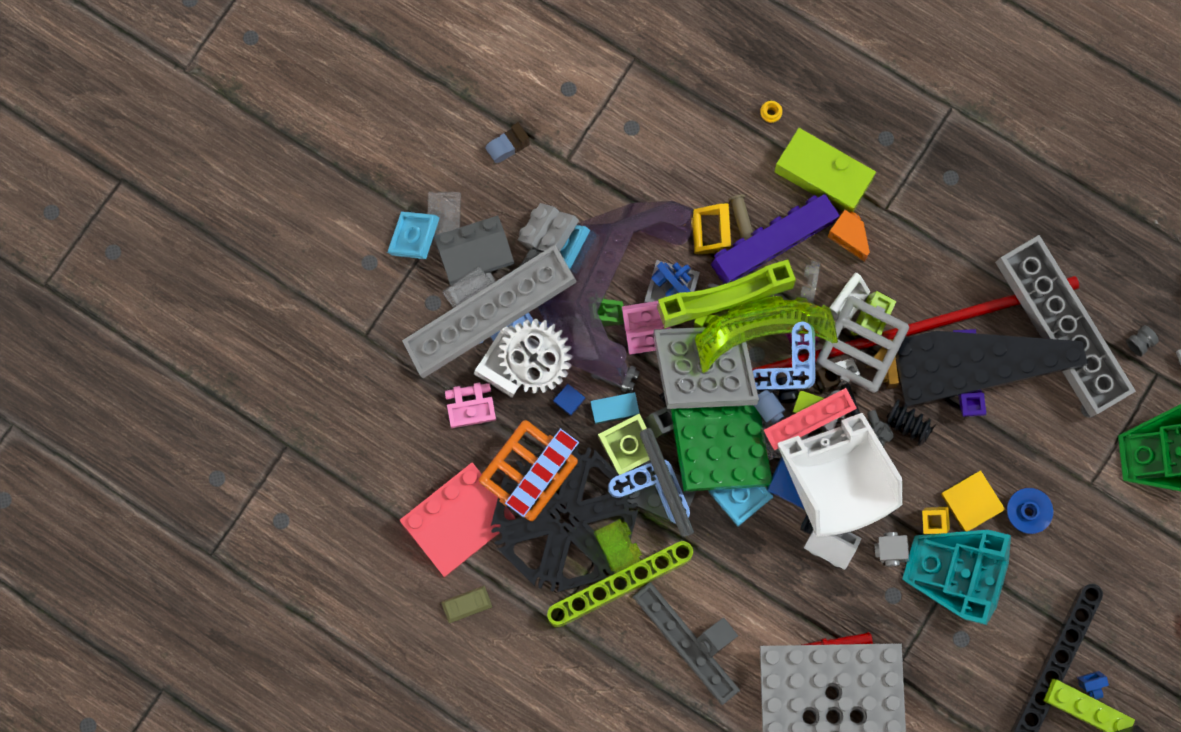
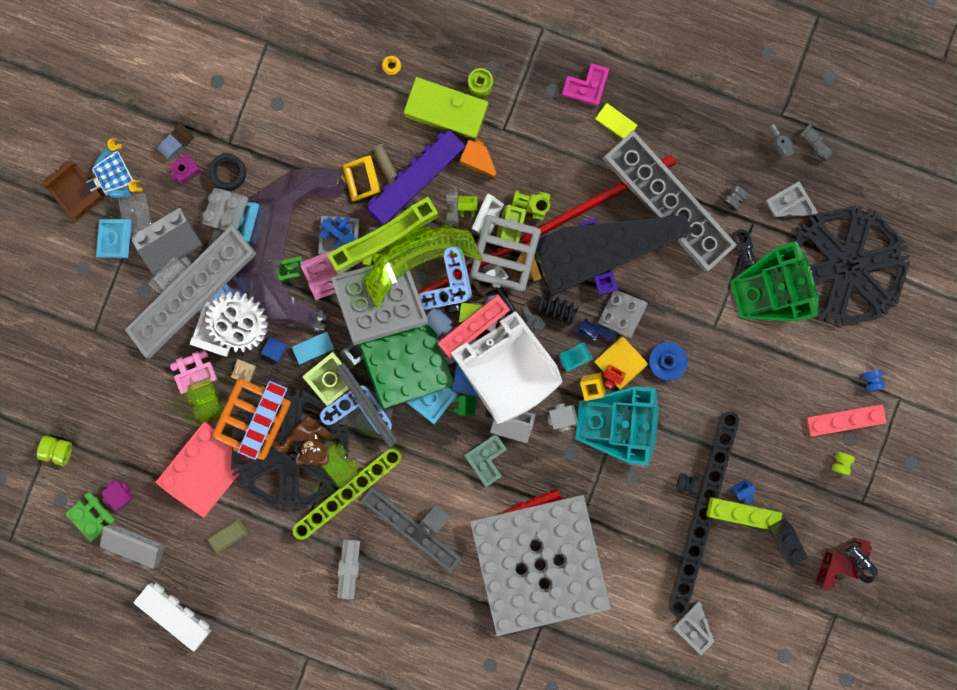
camera: 10 degrees left, 10 degrees up
(290, 460) = (52, 450): none -> lime wheel
(305, 550) = (86, 520): none -> bright green plate
(349, 527) = (117, 494): none -> magenta brick
(353, 590) = (131, 546): none -> light grey slope
(379, 173) = (71, 190): none -> reddish brown panel
(382, 683) = (172, 616): none -> white brick
(429, 163) = (112, 174): none -> torso
(477, 439) = (204, 399): none -> clear neon green brick
(511, 175) = (190, 166): none -> magenta brick
(528, 413) = (243, 371): none -> tan tile
(557, 173) = (213, 171): none -> black tyre
(593, 519) = (312, 451): none -> reddish brown animal
(602, 673) = (348, 569): none -> light grey piece
(781, 511) = (466, 405): none -> green tile
(786, 578) = (481, 458): none -> sand green plate
(828, 281) = (467, 203): none -> lime tile
(870, 149) = (480, 83): none -> lime wheel
(902, 295) = (530, 202): none -> lime connector
(920, 482) = (575, 357): none -> teal bracket
(947, 458) = (593, 331): none -> clear blue connector
(963, 512) = (614, 376): none -> red tile
(985, 444) = (622, 313): none -> light grey plate
(993, 185) = (589, 90): none -> dark pink plate
(1016, 225) = (615, 121): none -> neon yellow tile
(1027, 660) = (687, 483): none -> black wheel
(1143, 401) = (745, 249): none -> black connector

